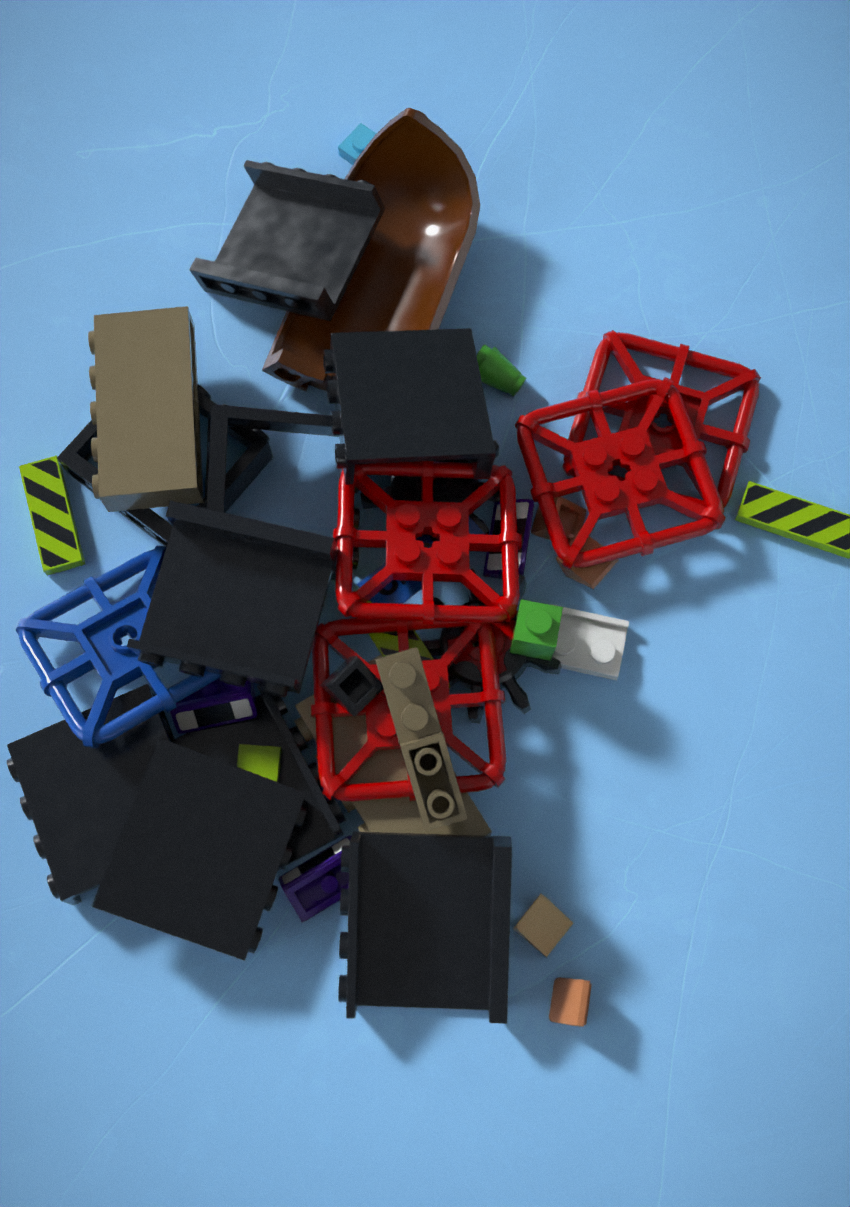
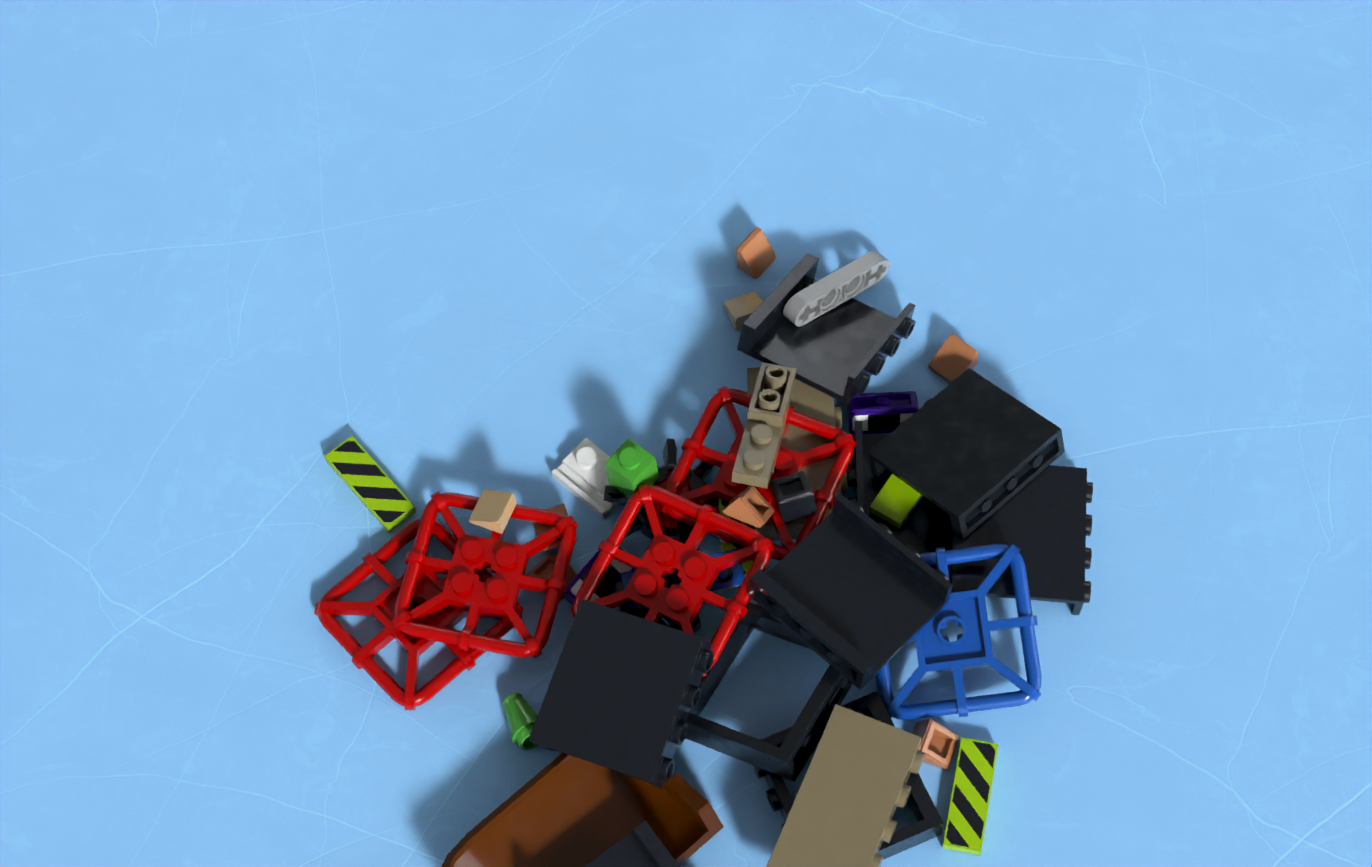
camera: 150 degrees left, 10 degrees down
(109, 544) = (936, 742): none -> nougat slope
(276, 980) = (953, 358): none -> nougat slope
(386, 639) = (749, 507): none -> nougat slope
(447, 993) = (836, 288): none -> light grey beam
(649, 521) = (493, 510): none -> tan slope

